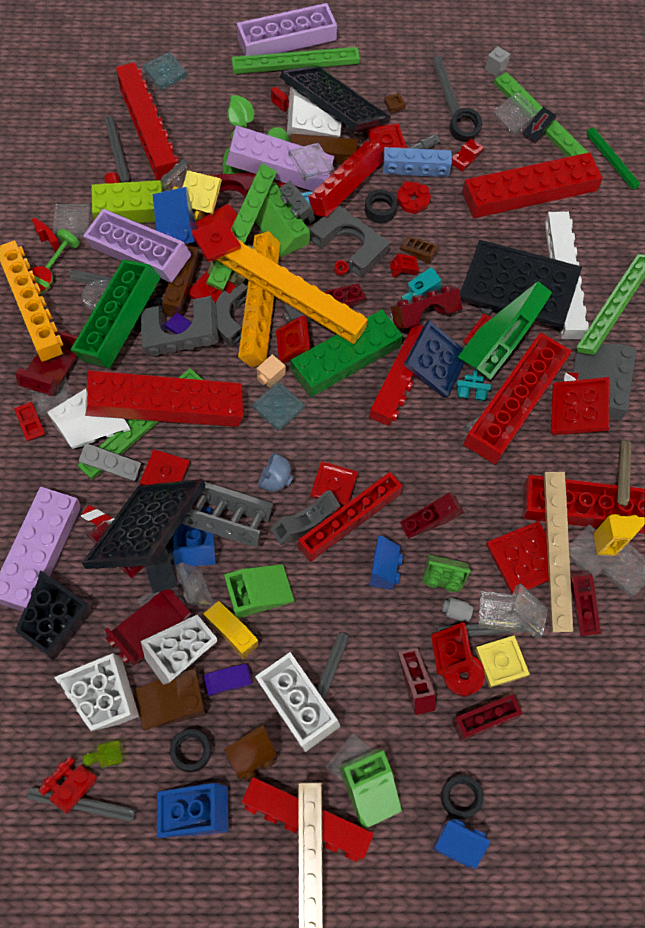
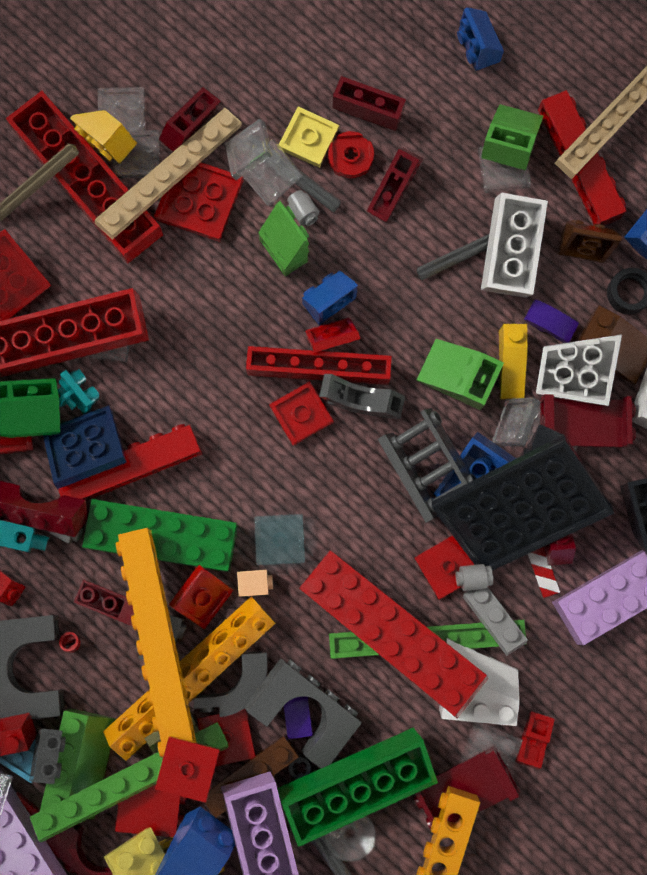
camera: 135 degrees left, 15 degrees up
(142, 473) = (474, 577): none -> light grey brick
(275, 474) = (349, 468): sand blue cylinder -> none
(359, 540) = (332, 334): none -> red plate
(432, 515) = (241, 304): dark red slope -> none
(452, 650) = (346, 174): red slope -> none
(477, 790) = (451, 56): black tyre -> none

